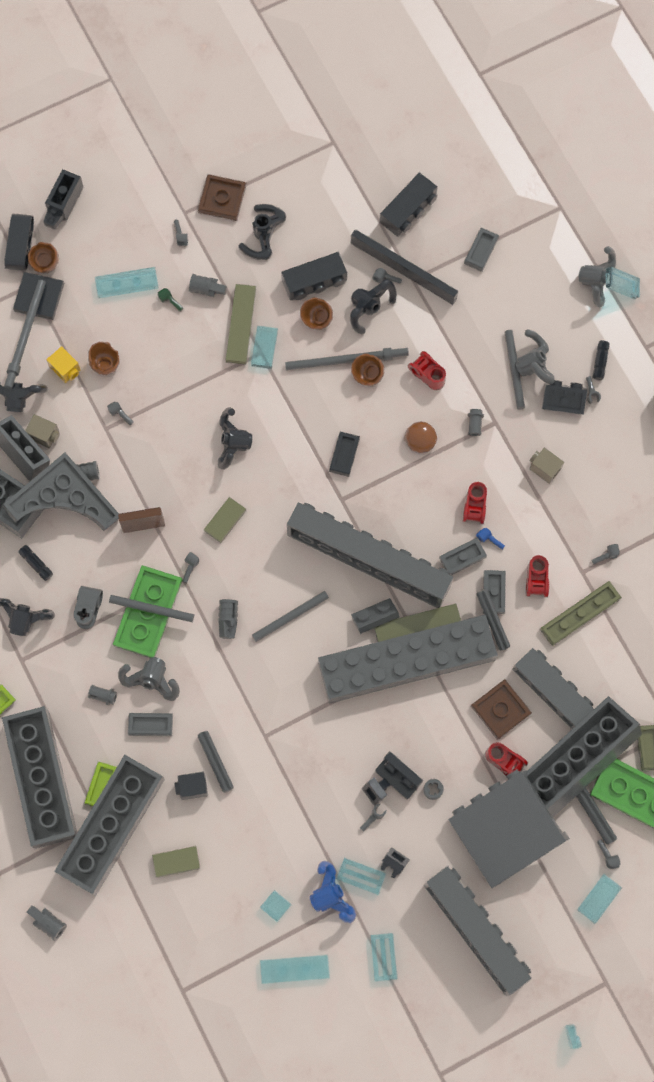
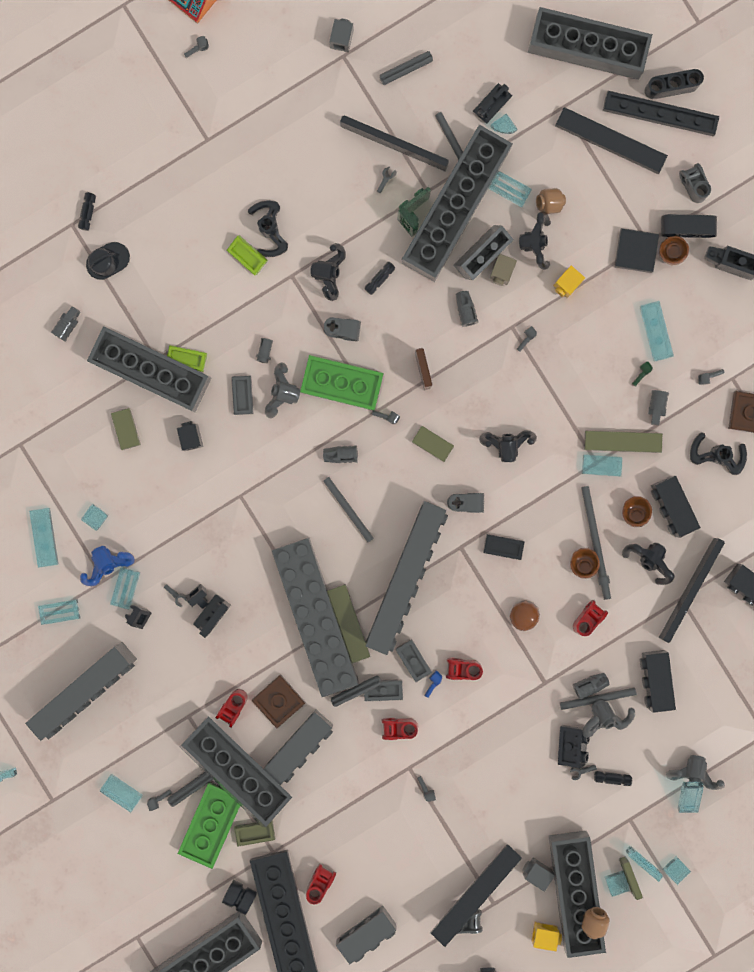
camera: 90 degrees right, 15 degrees up
(14, 368) = (558, 236): dark grey bar -> none
(39, 777) = (185, 304): dark grey brick -> none
(62, 487) = (447, 294): dark grey plate -> none
(103, 358) = (577, 318): dark orange hair -> none
(151, 608) = (343, 386): dark grey bar -> none
(215, 761) = (213, 455): dark grey axle -> none
(292, 486) = (469, 502): none -> dark grey piece
(375, 615) = (353, 585): dark grey plate -> none
(380, 274) = (683, 569): dark grey hand -> none
(440, 788) = (206, 651): dark grey bush -> none
(475, 422) = (542, 665): dark grey pin -> none
(481, 249) = (716, 661): dark grey tile -> none
(498, 306) = (657, 681): none -> black brick
(500, 375) = (590, 685): none -> dark grey hinge
(507, 828) = (169, 713): dark grey panel -> none
(546, 465) = (505, 732): dark tan brick -> none
(580, 613) = (370, 768): olive tile -> none

